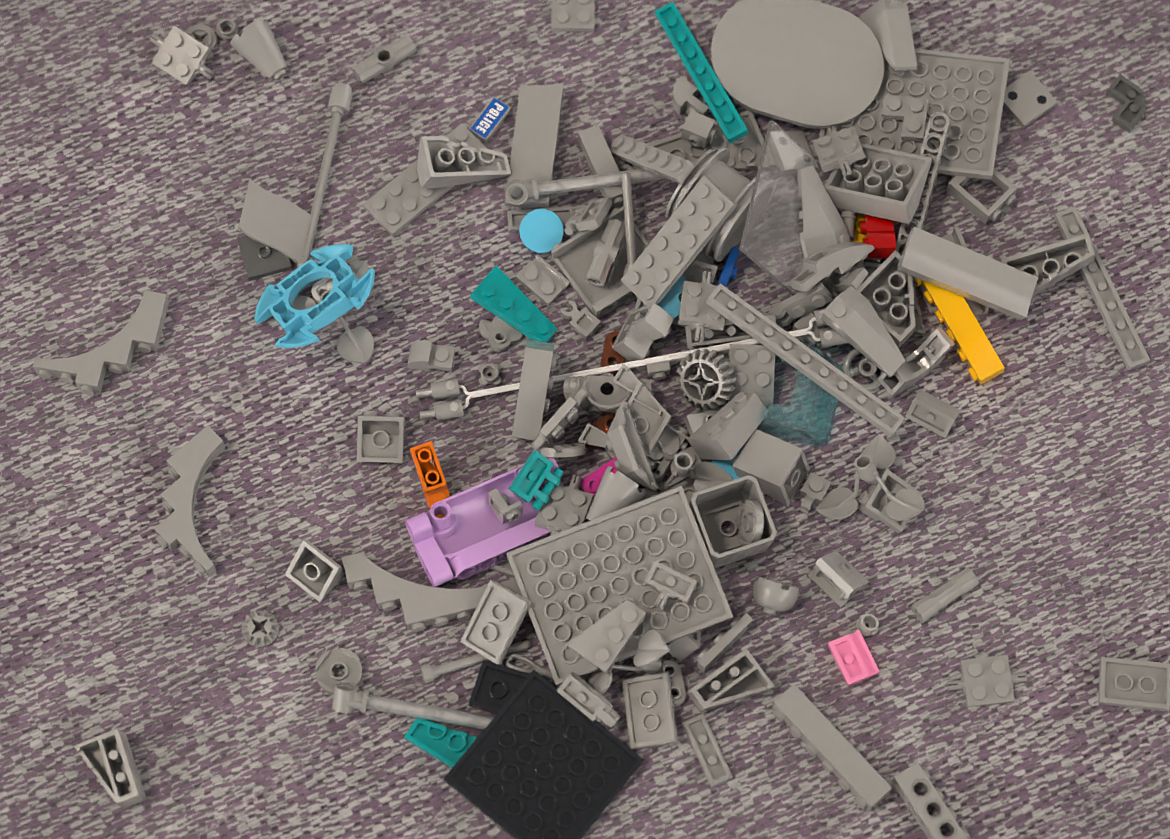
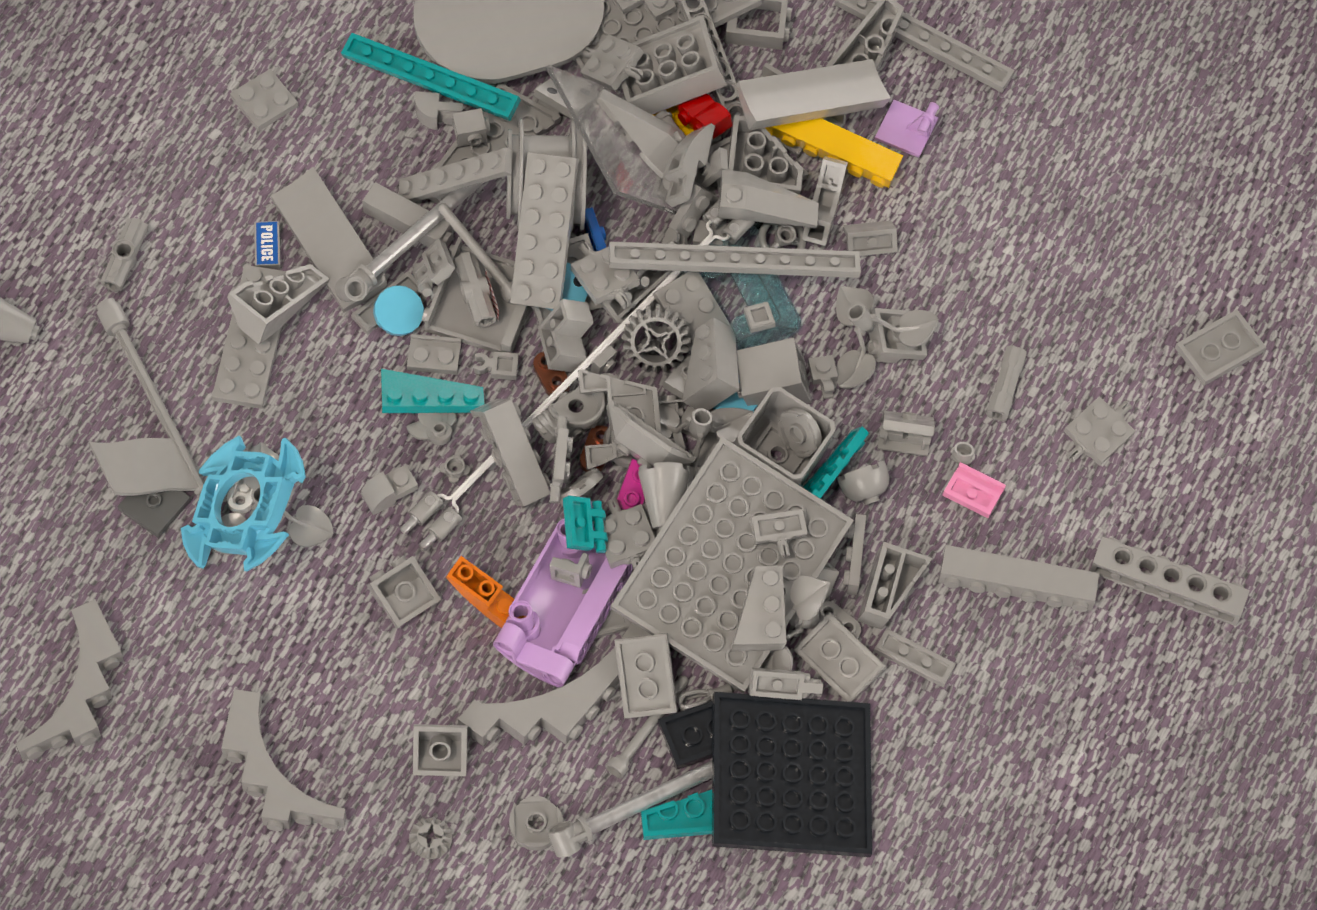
camera: 40 degrees left, 5 degrees down
(764, 564) = (836, 462): none -> teal wing
(789, 415) = (759, 317): none -> light grey tile
(1030, 348) = (907, 127): none -> lavender plate

